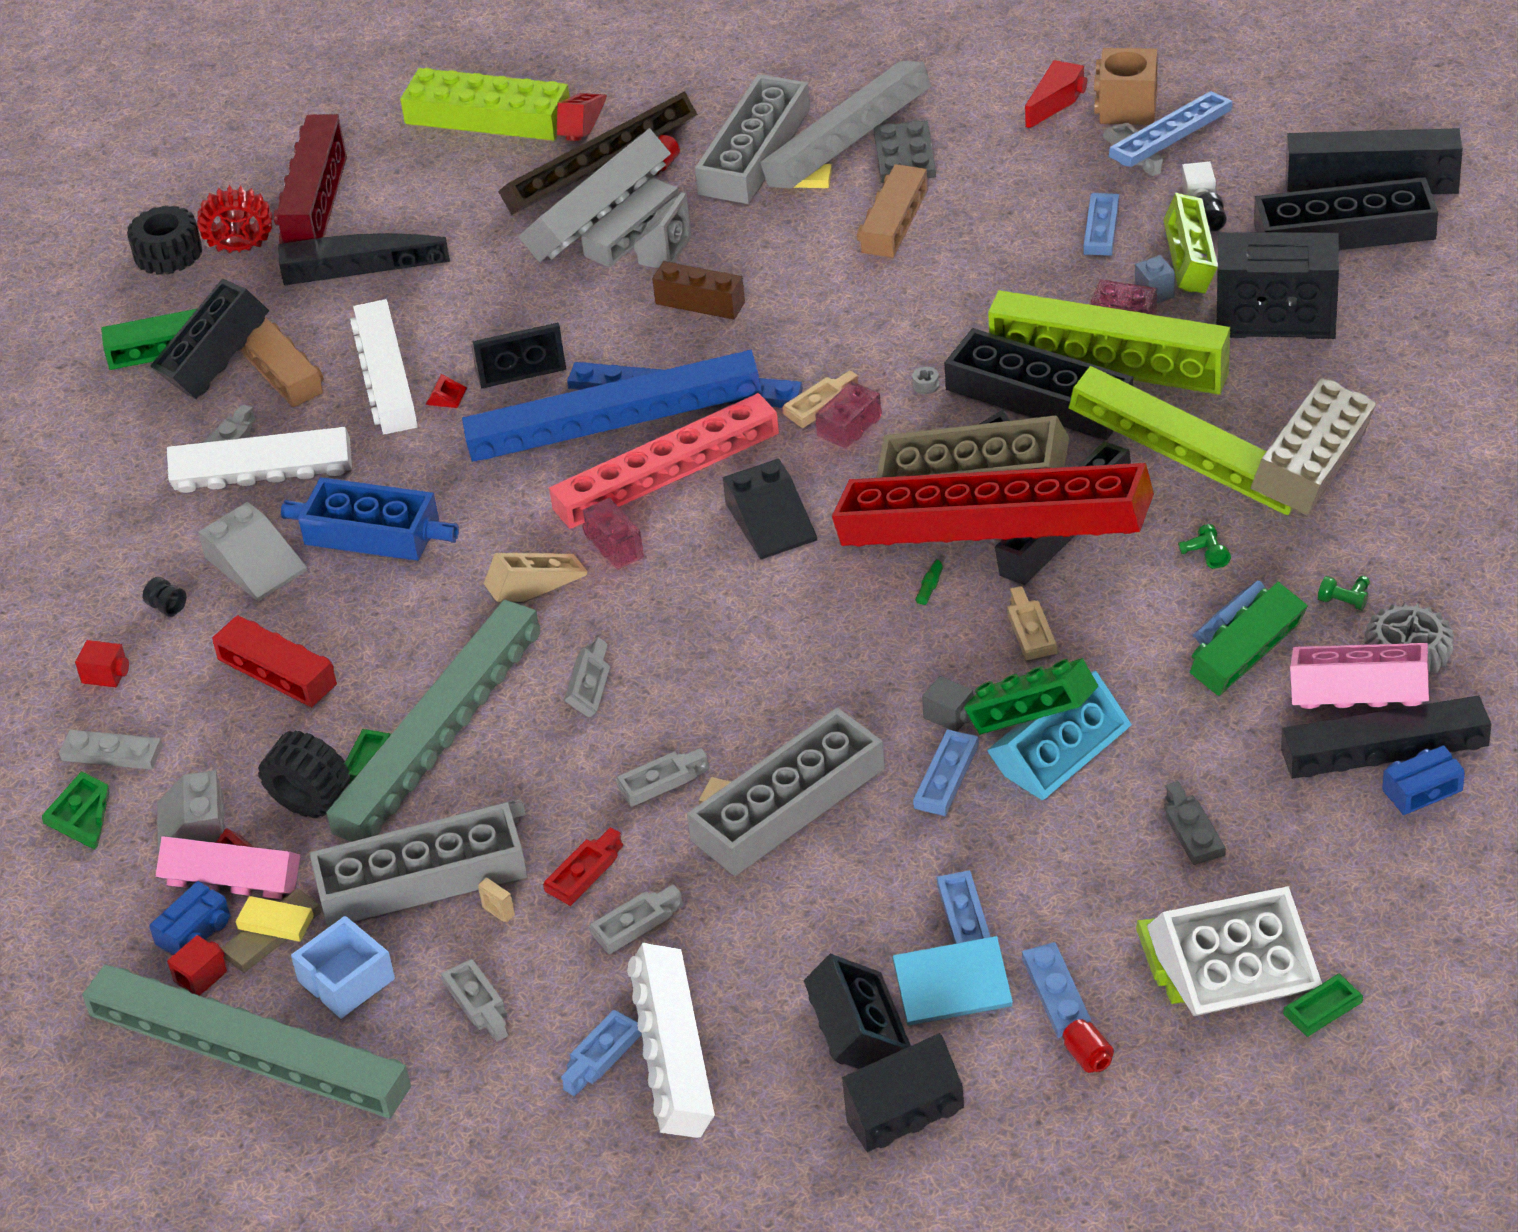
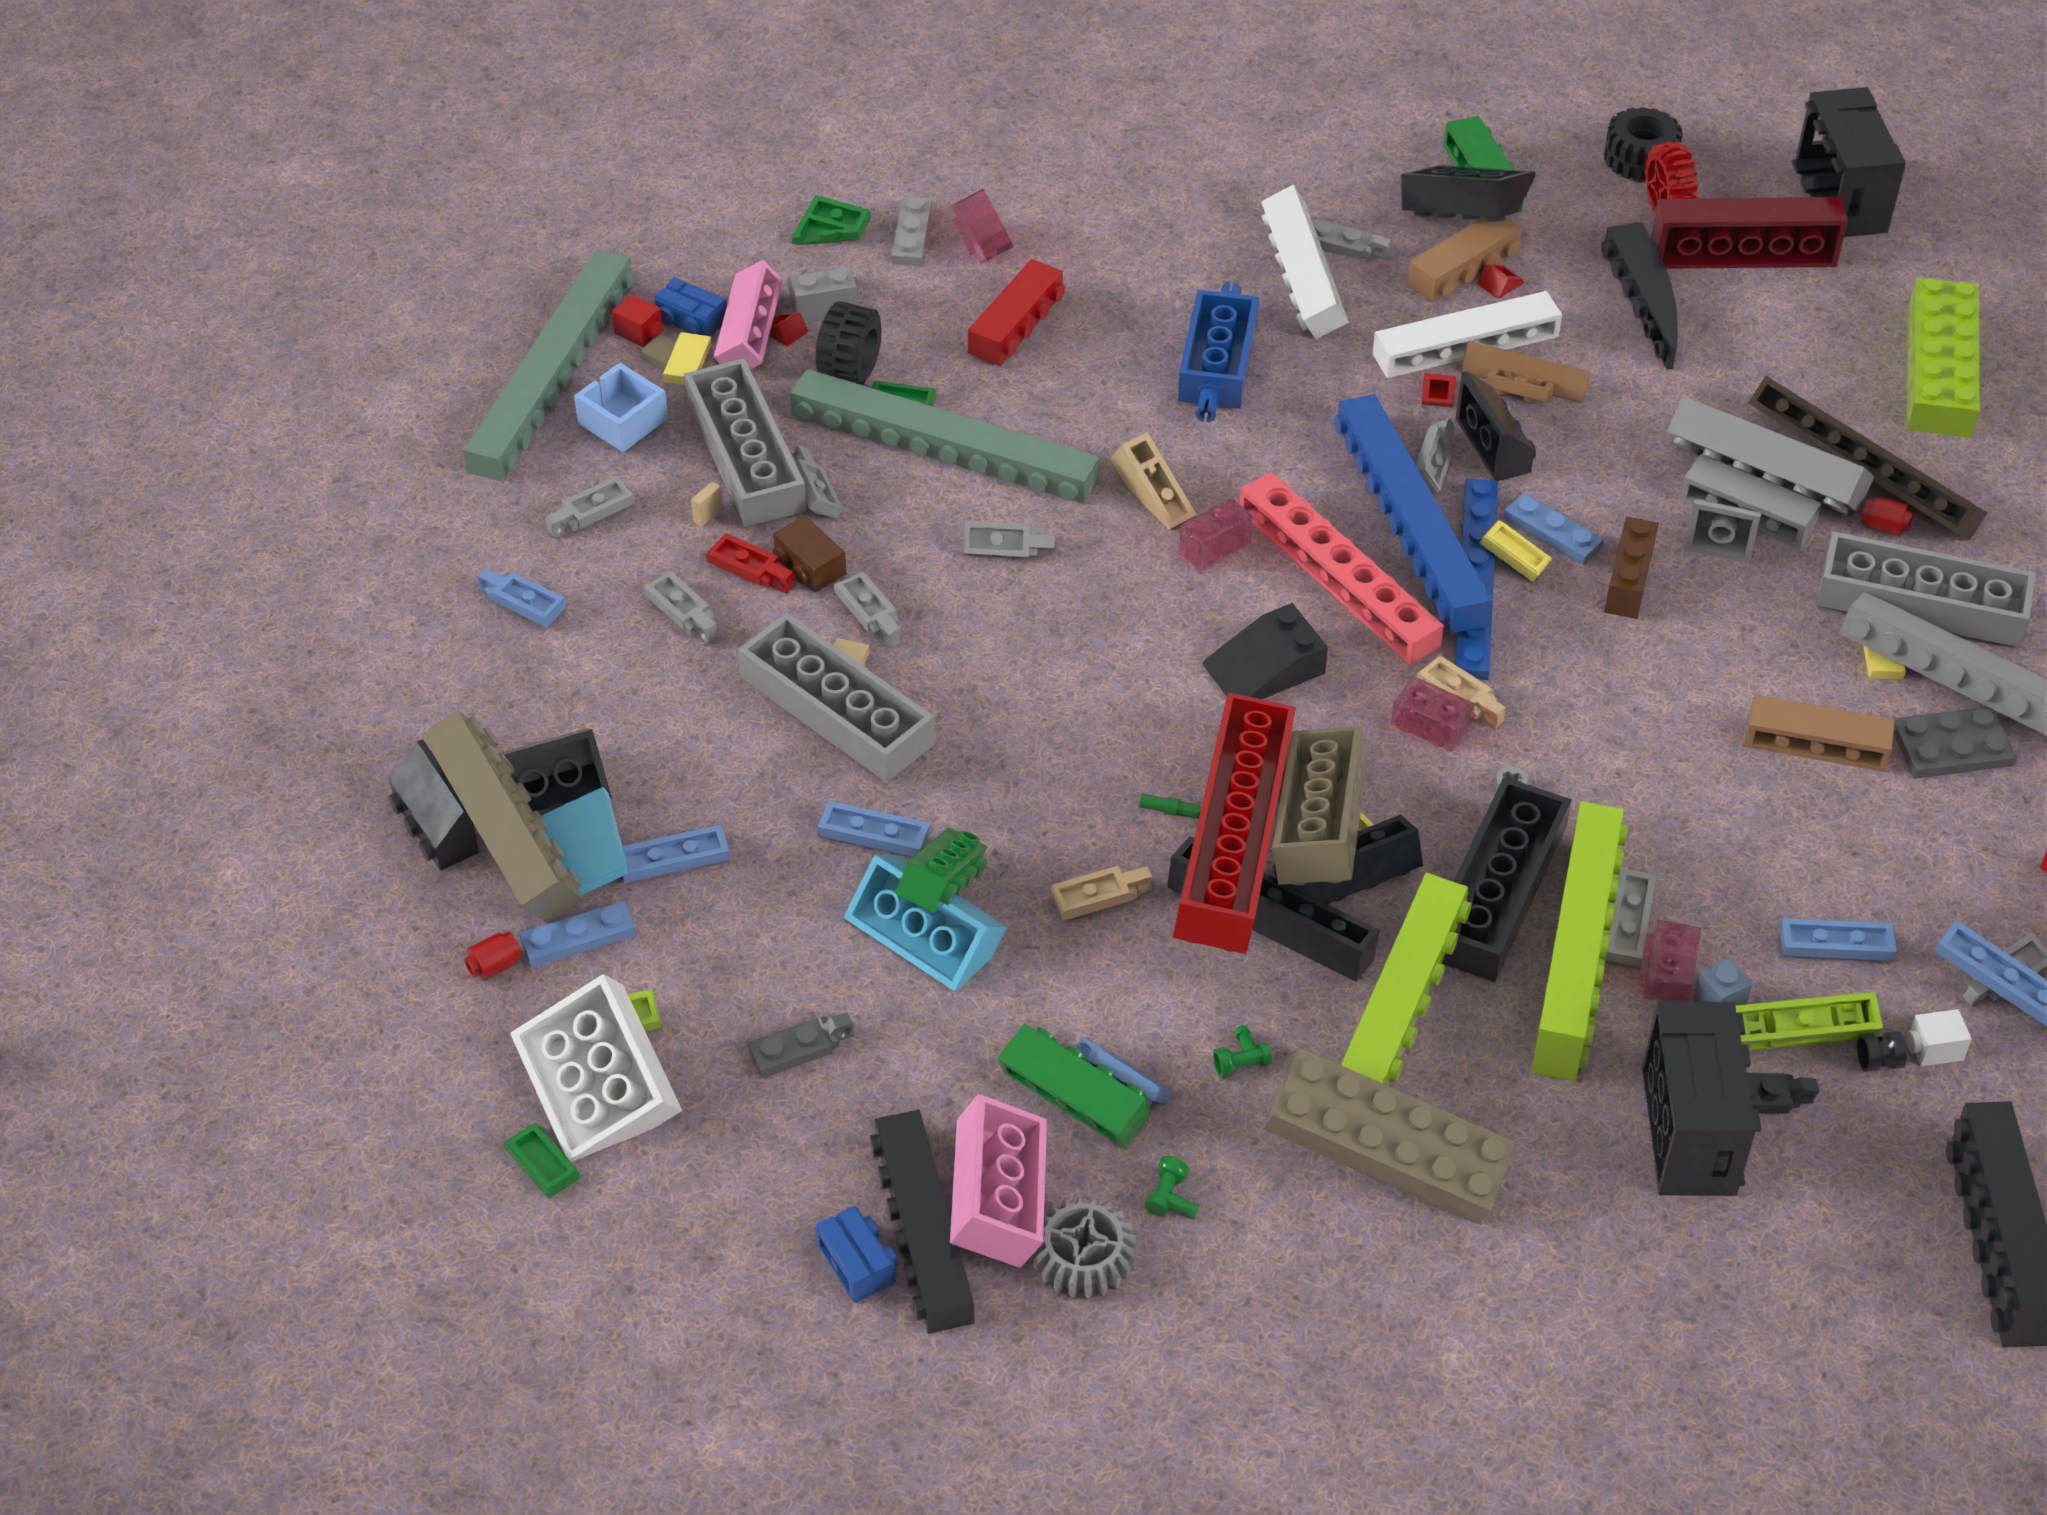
camera: 80 degrees right, 5 degrees up
(102, 663) = (1014, 202): red brick -> none
(136, 683) = (982, 225): none -> clear pink brick
(164, 596) = (1109, 225): black wheel -> none
(250, 551) = (1171, 275): light grey slope -> none
(253, 131) = (1852, 158): none -> black container
(313, 346) = (1499, 280): none -> red slope
(446, 336) = (1524, 374): none -> medium nougat bracket
(522, 391) = (1436, 454): none -> light grey hinge
(578, 115) = (1945, 436): red slope -> none
(582, 817) = (809, 554): none -> reddish brown brick
(634, 337) = (1553, 528): none -> medium blue plate
(665, 354) = (1515, 550): none -> light yellow tile
(670, 1041) = (521, 636): white brick -> none
(945, 703) = (973, 816): dark grey brick -> none
(953, 1007) = (503, 816): none -> dark tan brick
(1359, 213) = (1888, 1195): black brick -> none

